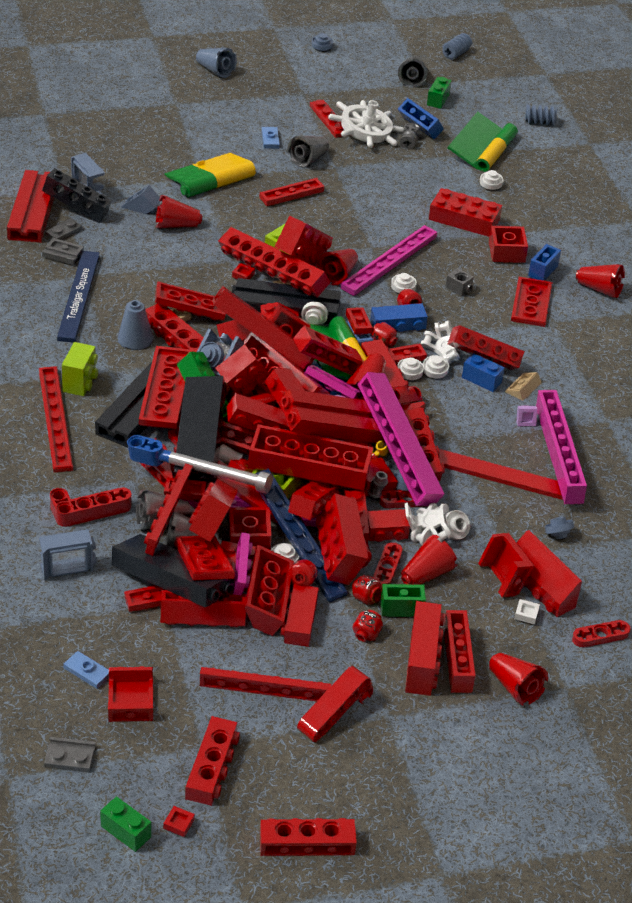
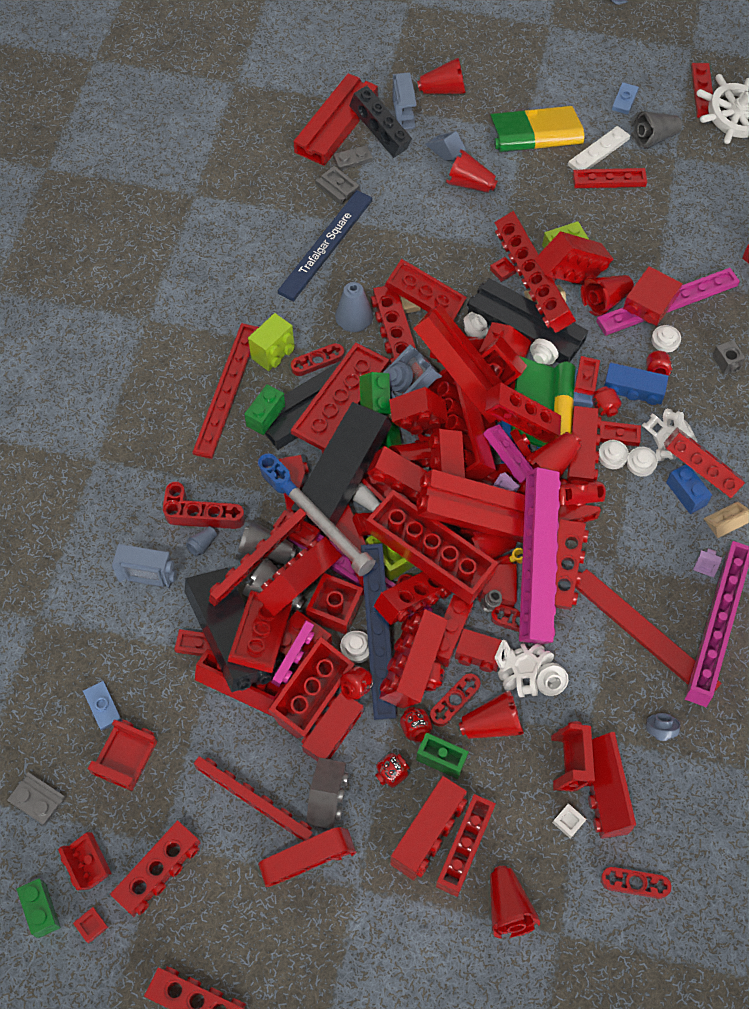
camera: 30 degrees right, 20 degrees up
(101, 529) = (198, 543): none -> sand blue cone
(107, 412) = (265, 409): none -> green brick
(114, 155) = (443, 80): none -> red cone
(127, 369) = (302, 360): none -> red beam
(146, 777) = (84, 862): none -> red bracket
(271, 175) = (599, 149): none -> white plate
(327, 654) = (327, 793): none -> flat silver brick
(337, 372) = (521, 441): none -> red plate
(377, 255) = (652, 296): none -> red brick

